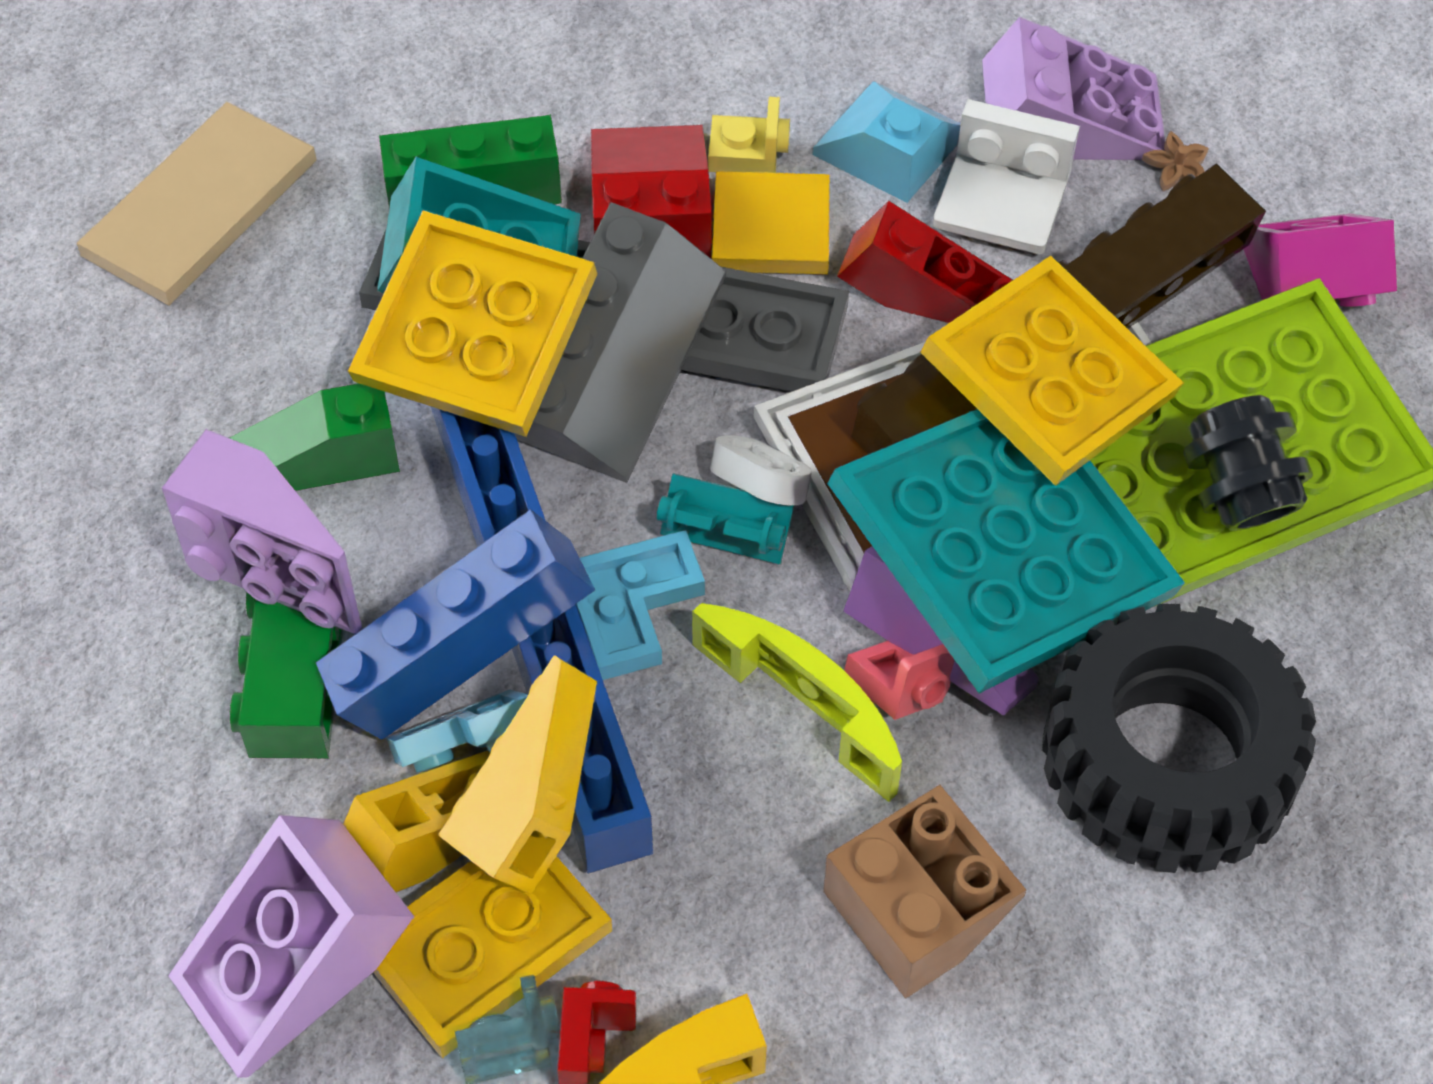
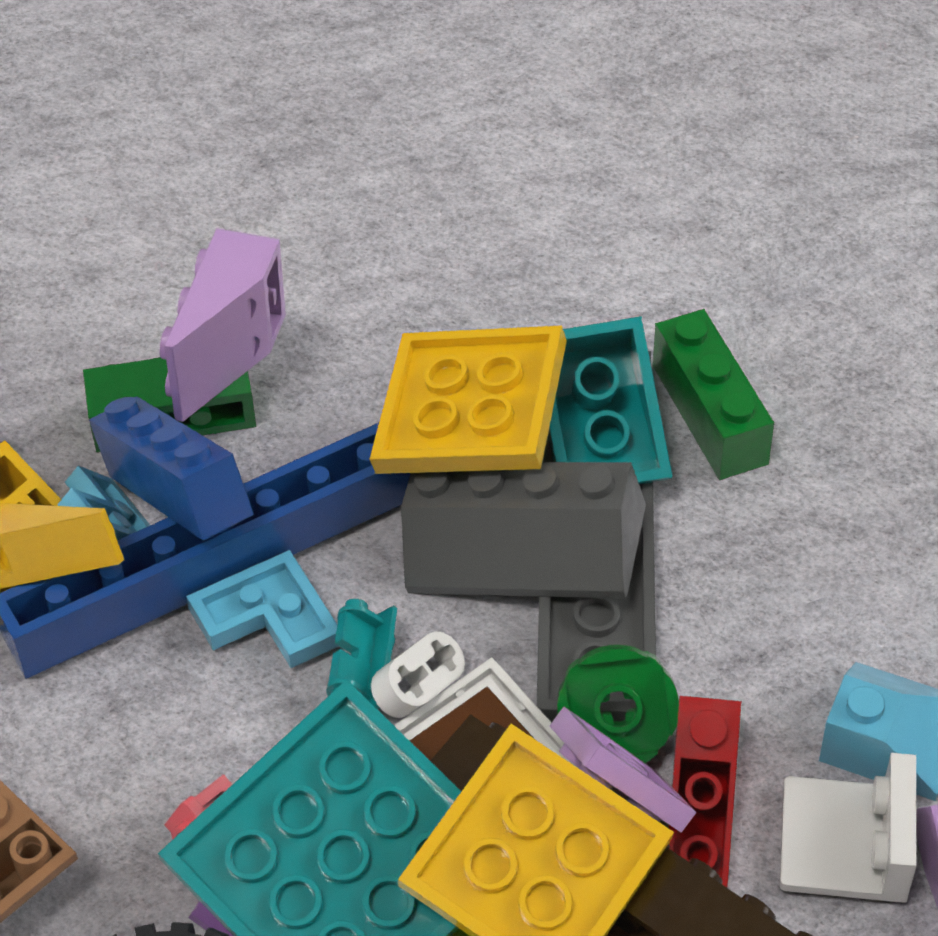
camera: 80 degrees right, 5 degrees down
(196, 203) = (627, 231): tan tile -> none
(328, 437) = (367, 348): green slope -> none
(656, 174) = (744, 533): red slope -> none
(744, 642) = (142, 807): neon yellow slope -> none
(748, 142) = (838, 604): light yellow bracket -> none
(772, 222) = (742, 643): yellow tile -> none
(849, 308) = (639, 678): none -> green plate
(930, 314) = (620, 770): none -> lavender plate

